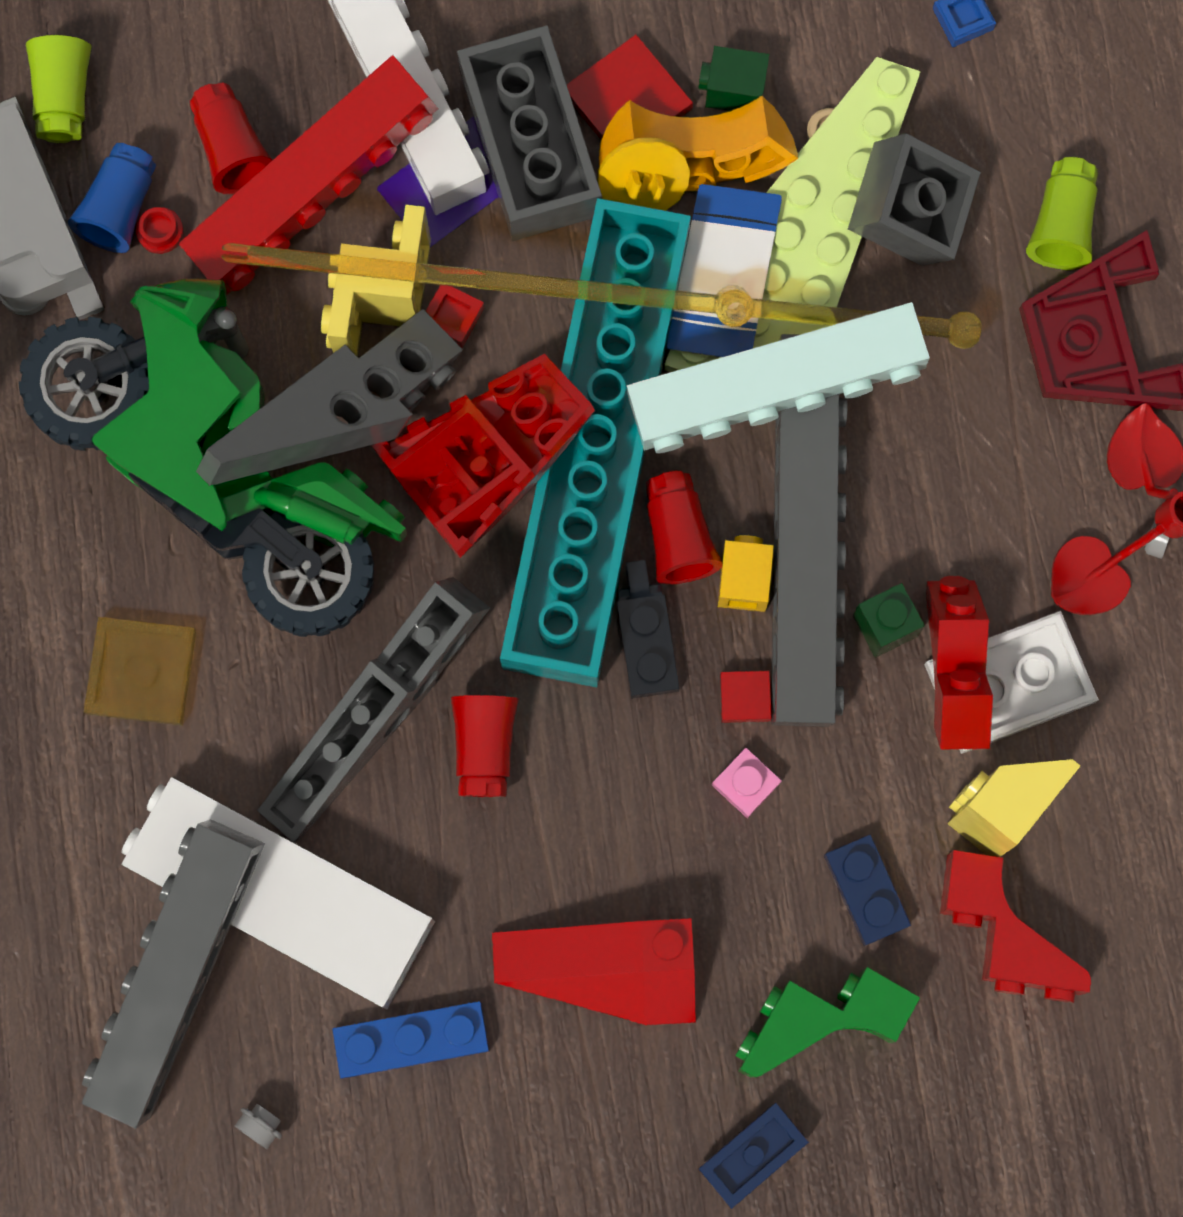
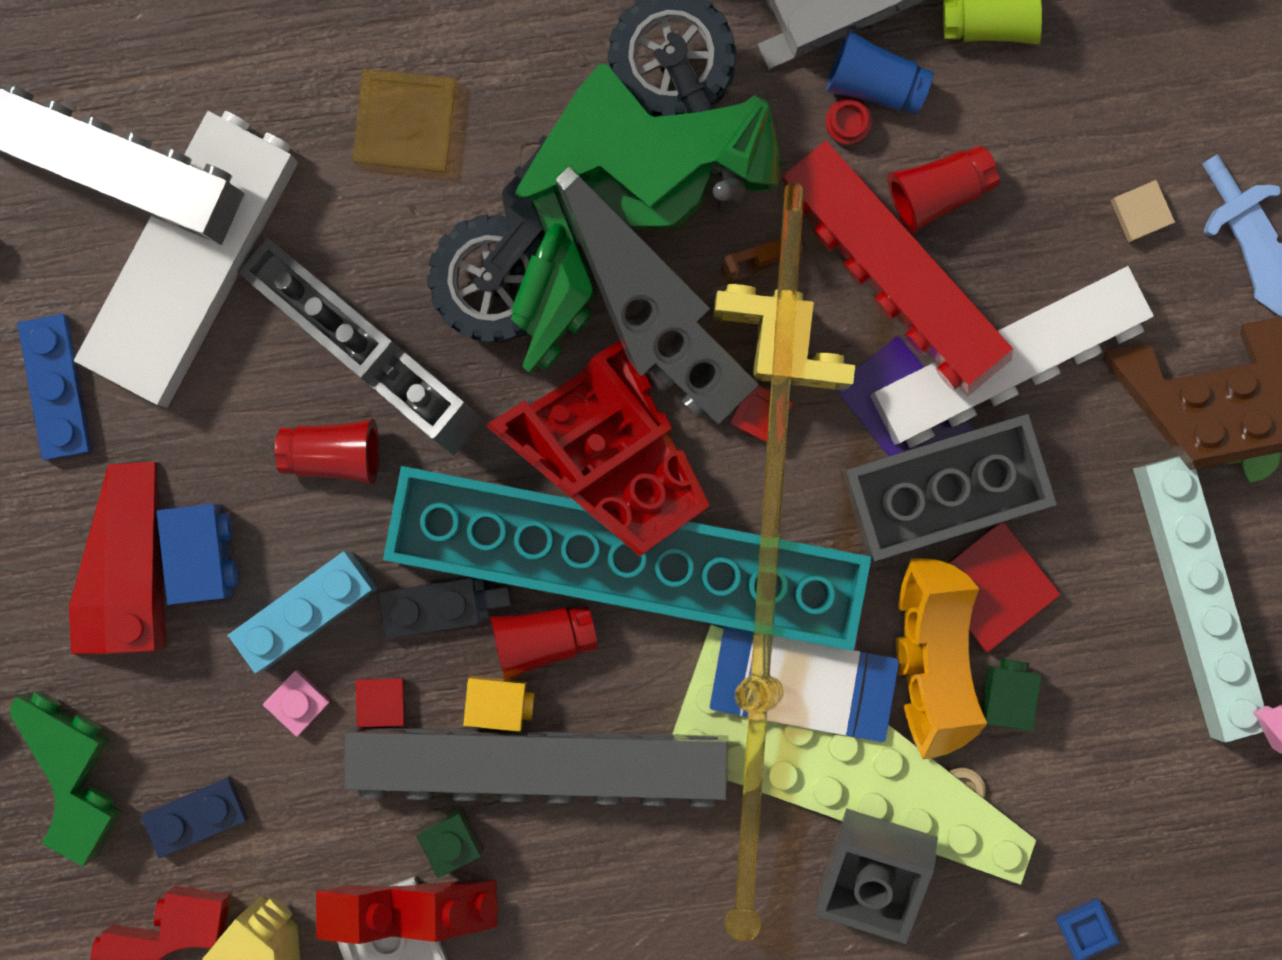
camera: 85 degrees right, 10 degrees up
(296, 315) = (750, 261): none -> reddish brown tile
(590, 882) = (196, 553): none -> blue brick
(644, 174) = (900, 602): yellow piece -> none
(650, 769) = (302, 611): none -> medium azure brick
(778, 377) = (675, 739): light aqua brick -> none

